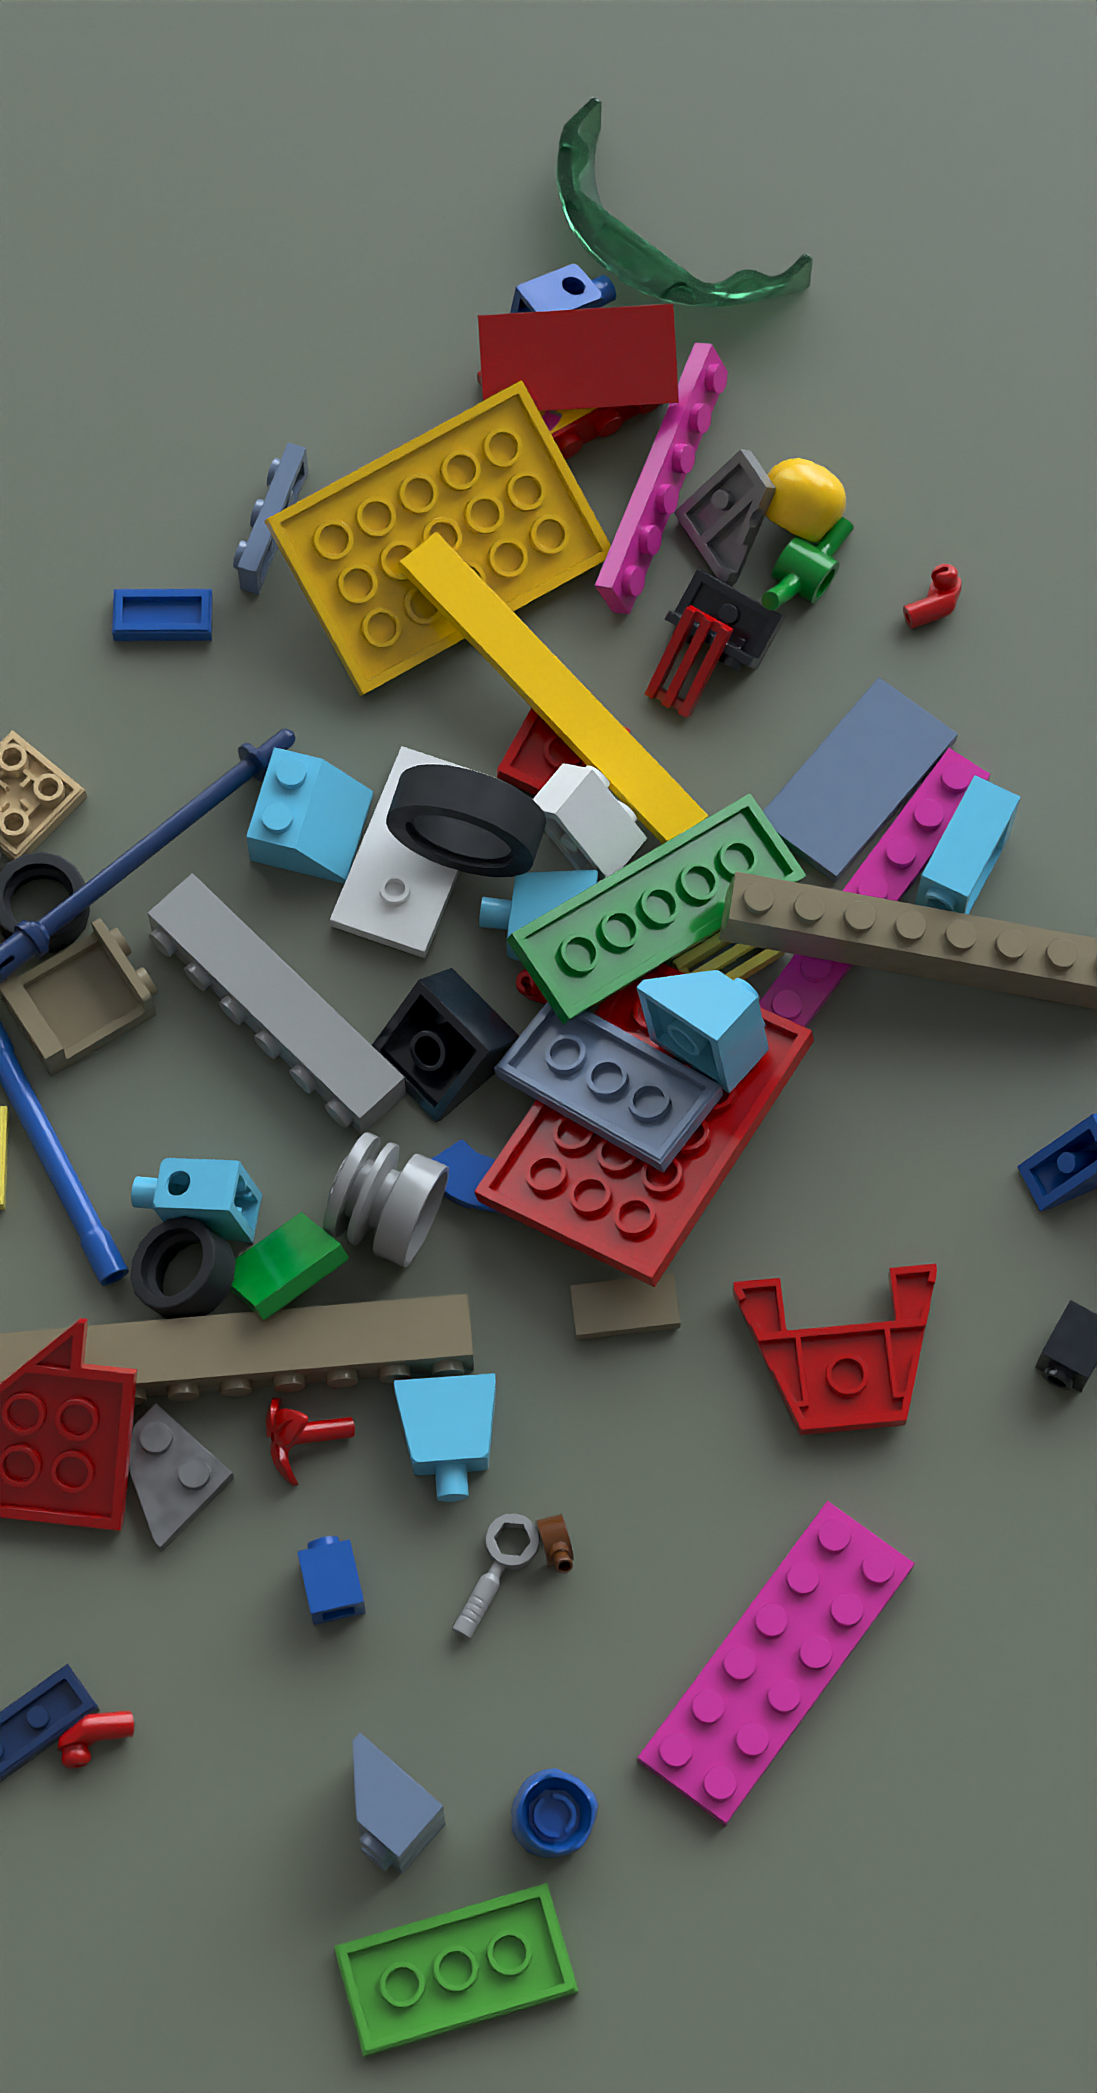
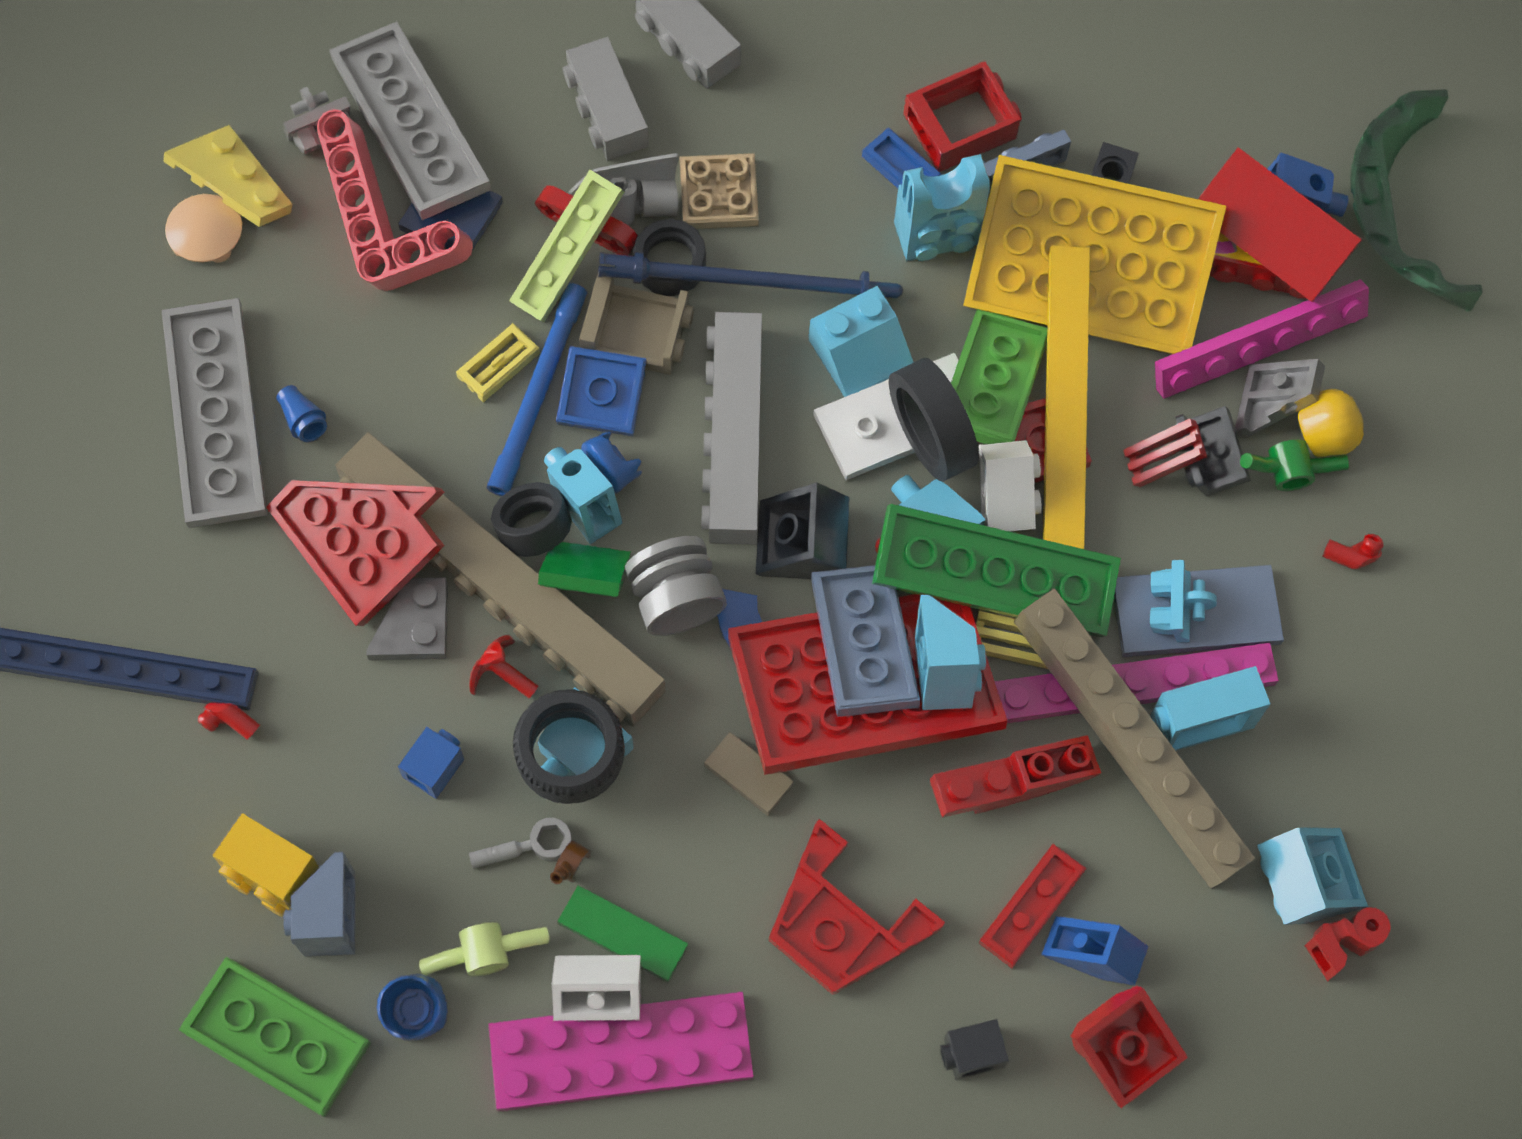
camera: 45 degrees right, 0 degrees up
(112, 1090) = (601, 391): none -> blue tile
(160, 557) = (931, 135): none -> red window
(197, 1144) = (611, 461): none -> blue hair
(261, 620) = (941, 210): none -> medium azure brick
(292, 1823) = (263, 863): none -> yellow brick
(364, 431) = (1115, 162): none -> black brick
(455, 1380) = (562, 705): none -> black tyre
(463, 722) = (998, 373): none -> bright green tile
(562, 1697) = (483, 949): none -> yellowish green piece
(667, 1558) = (622, 933): none -> green tile
(703, 1624) = (596, 987): none -> white brick
(820, 771) = (1177, 585): none -> medium azure hips
(861, 1077) = (1015, 778): none -> red slope
(989, 1176) = (1032, 906): none -> red tile

